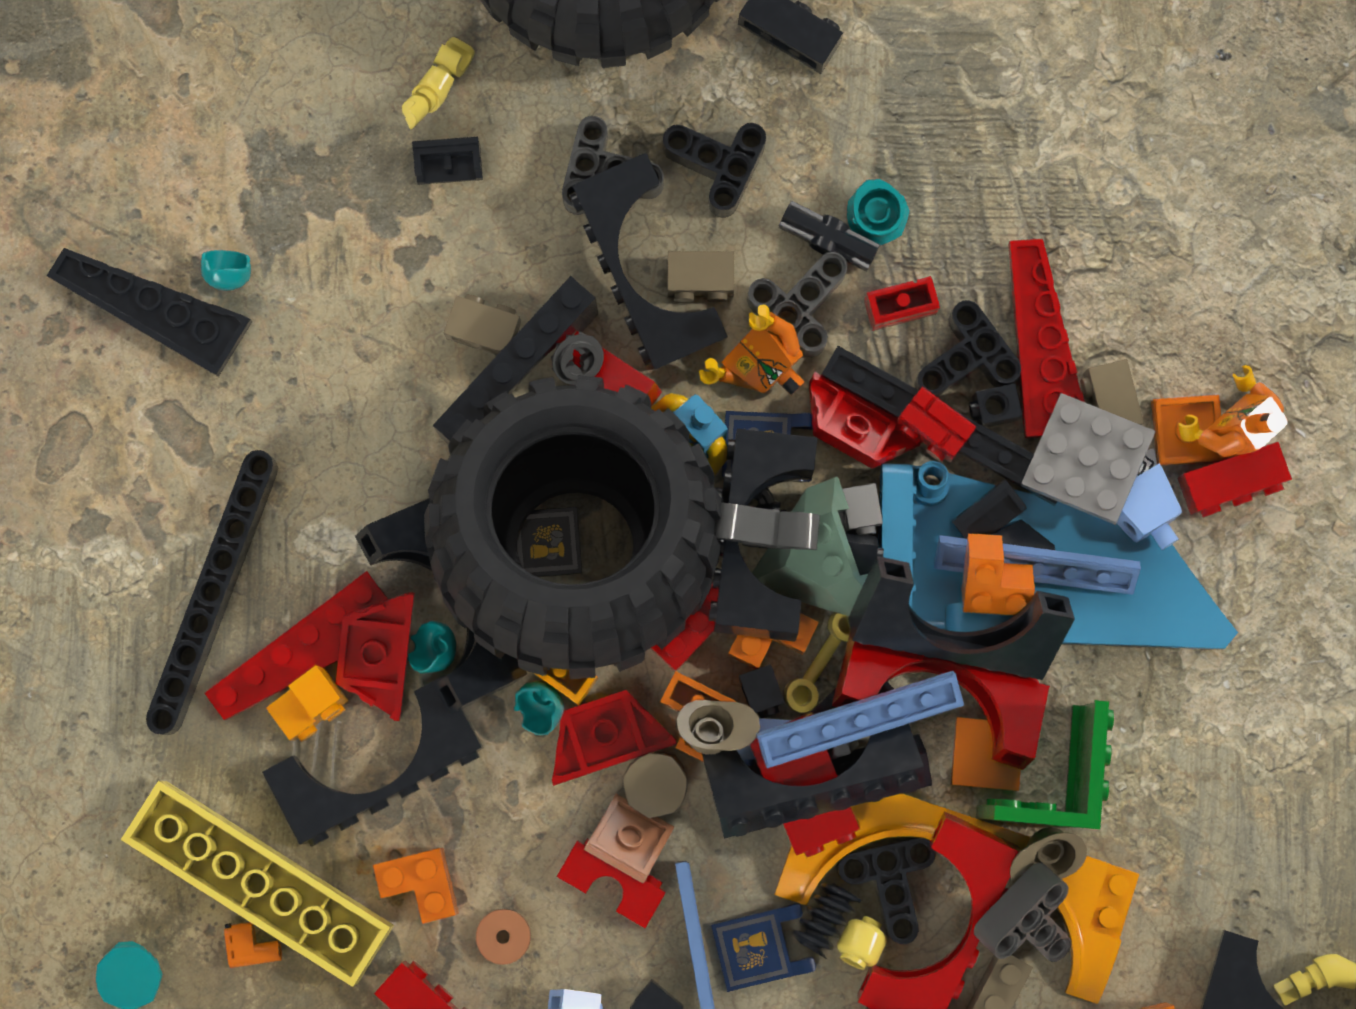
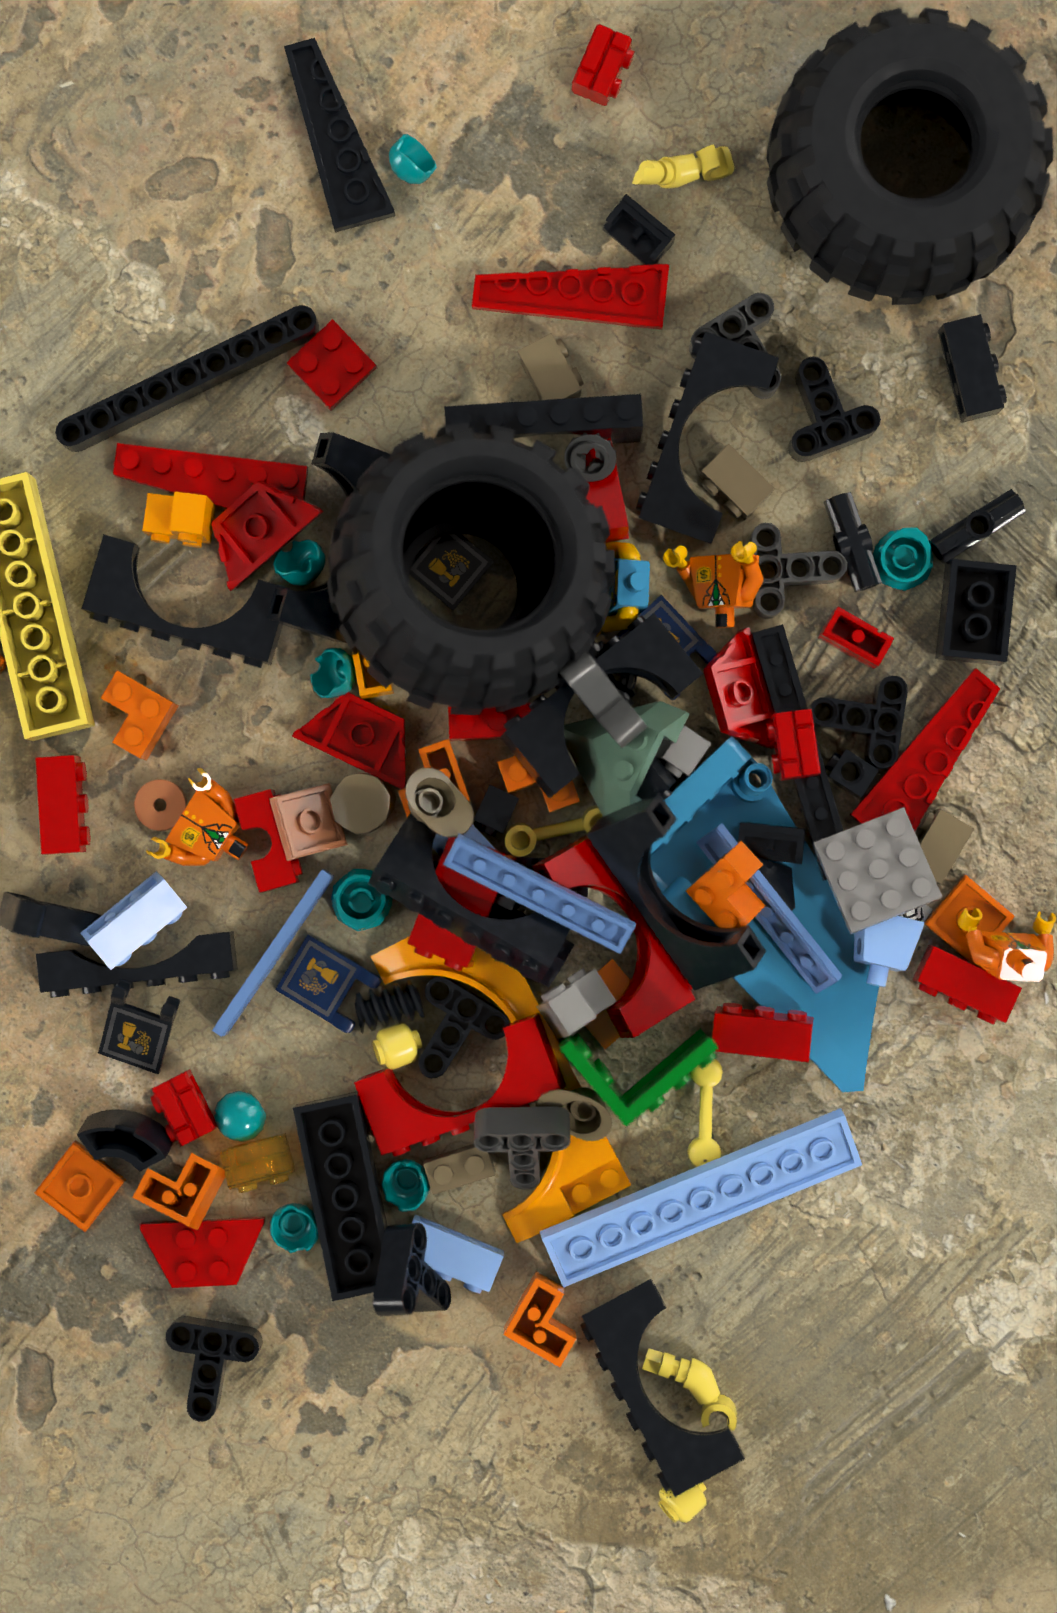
camera: 50 degrees right, 5 degrees up
(301, 66) = (602, 64): none -> red brick
(311, 478) = (331, 365): none -> red plate
(463, 235) = (601, 295): none -> red wing
(554, 921) = (203, 828): none -> orange torso
(725, 862) = (358, 902): none -> teal hat
(912, 119) = (992, 515): none -> black piece
(965, 778) = (576, 1004): none -> light grey brick
(970, 200) = (976, 612): none -> black brick
(1124, 660) = (763, 1032): none -> red brick
(1163, 790) = (704, 1146): none -> light yellow piece
(1200, 832) = (701, 1197): none -> light blue plate

